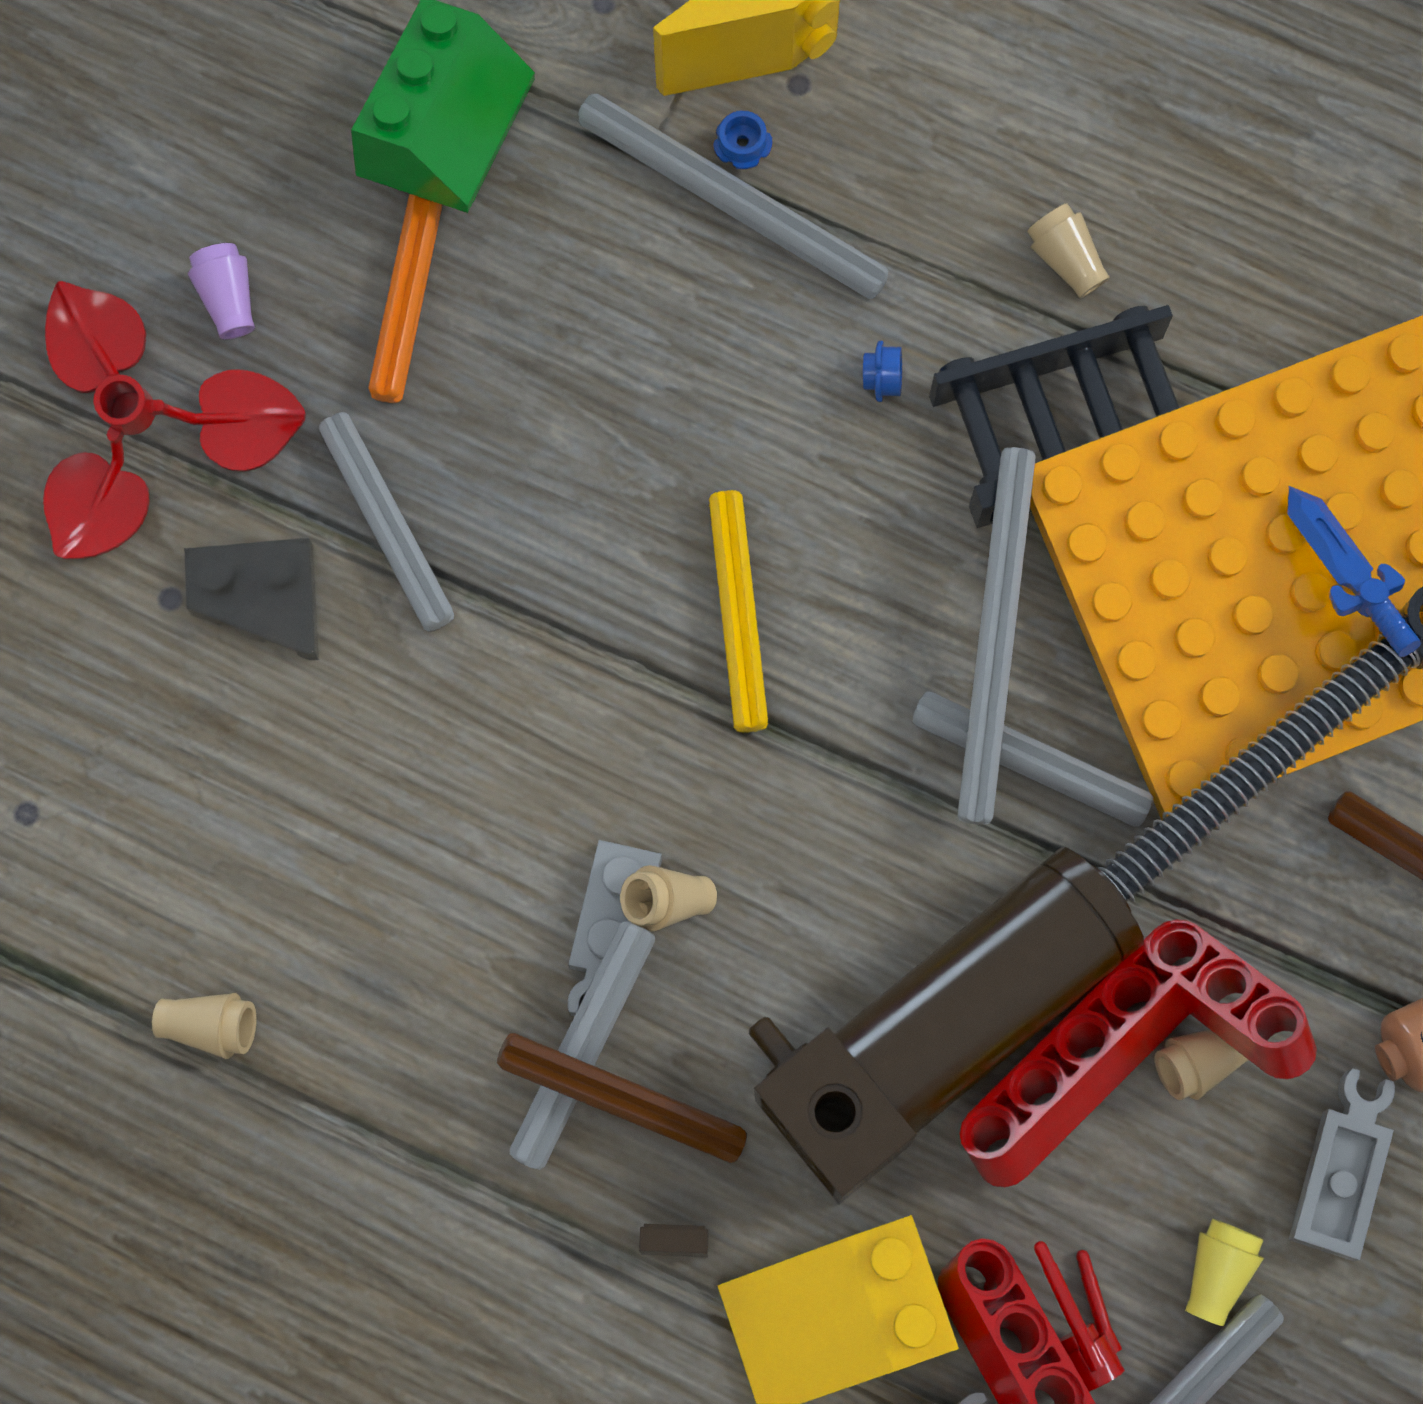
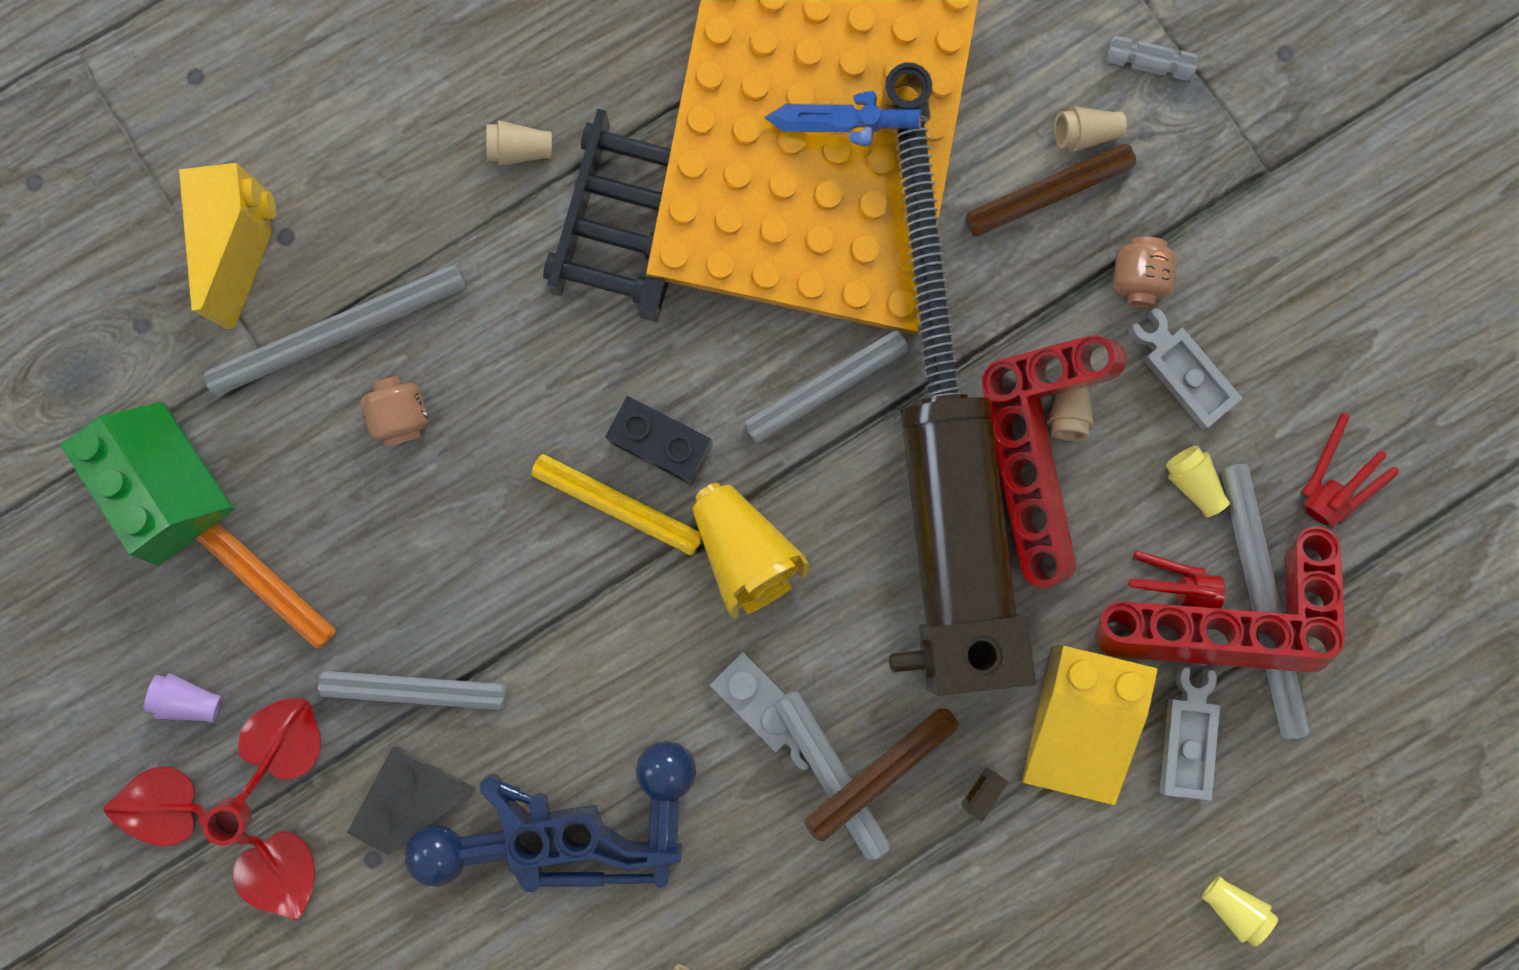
camera: 60 degrees left, 10 degrees up
(464, 848) = (663, 773): none -> dark blue piece
(664, 897) = (774, 670): tan cone -> none
(683, 307) = (394, 411): none -> nougat head
(746, 126) = (293, 290): blue plate -> none
(778, 782) = (745, 550): none -> yellow cone
(841, 607) = (659, 440): none -> black brick
(883, 371) = (519, 312): blue plate -> none
(996, 636) = (741, 357): light grey axle -> none

